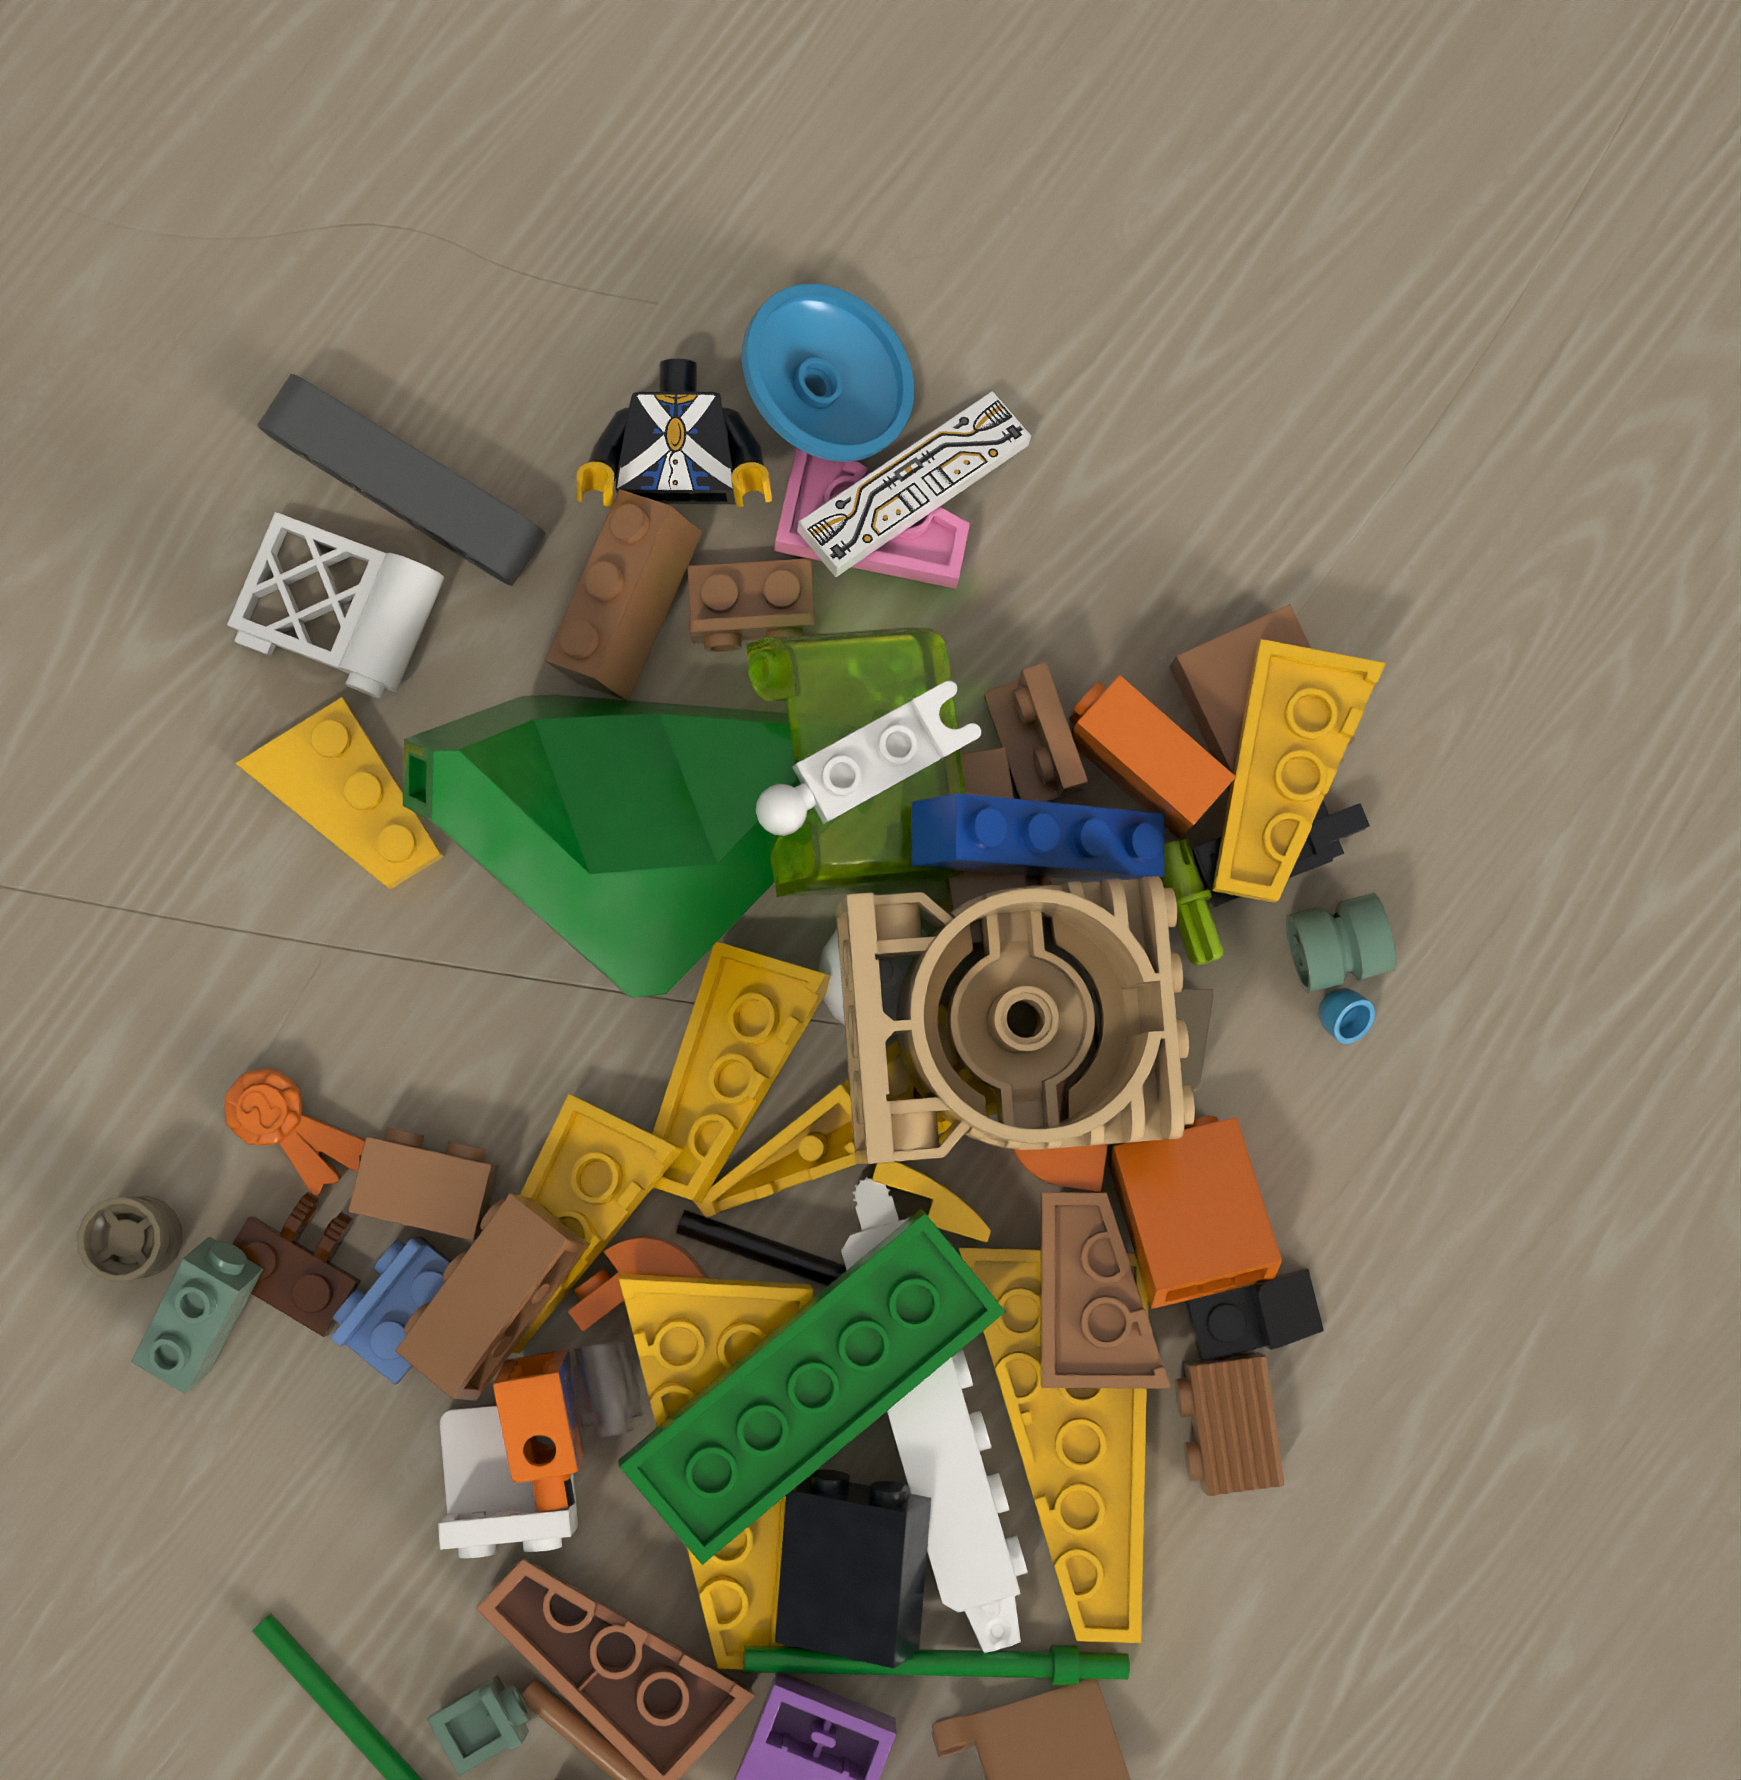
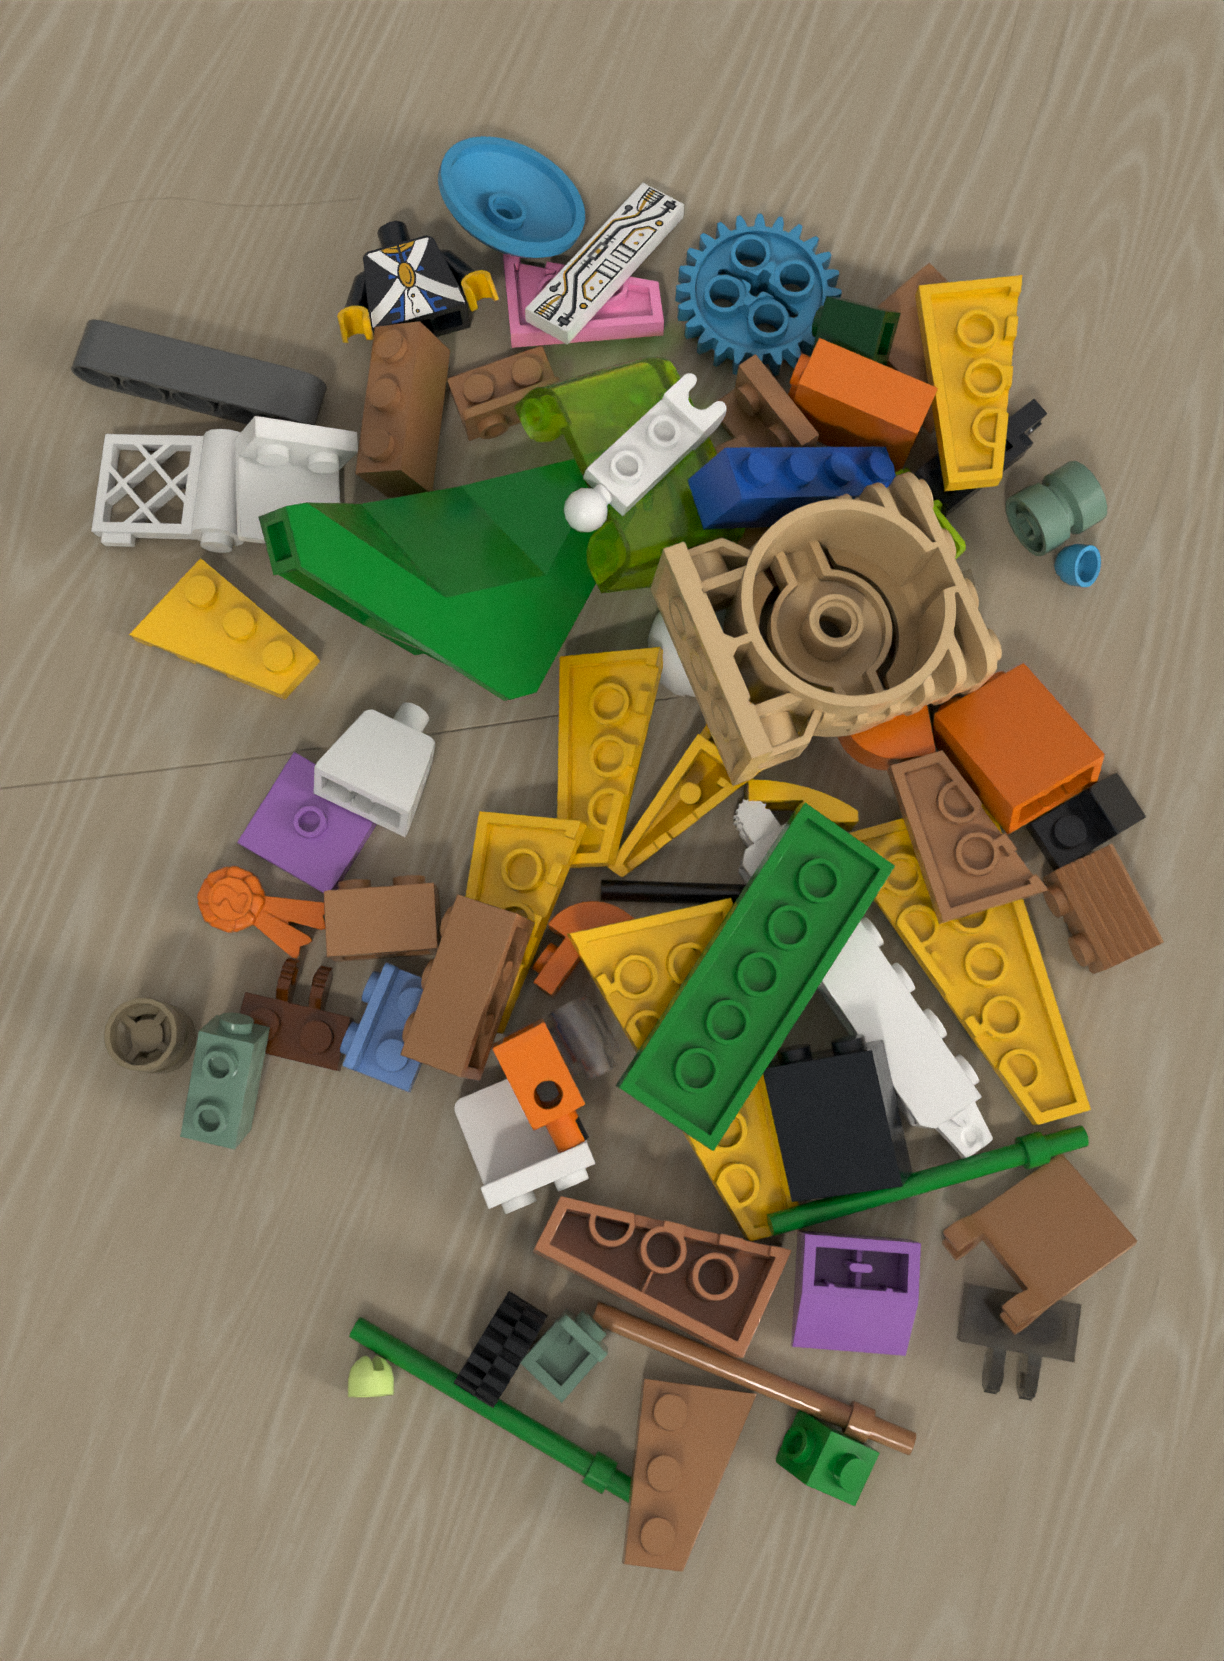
camera: 15 degrees left, 5 degrees down
(262, 1684) = (371, 1378): none -> yellowish green hinge
(378, 1047) = (304, 831): none -> medium lavender plate
(409, 1700) = (500, 1349): none -> black tyre
(465, 646) = (285, 466): none -> white bracket
(472, 1010) = (379, 767): none -> white torso
(1124, 540) = (781, 261): none -> dark azure gear
(1171, 668) = (856, 327): none -> dark green brick

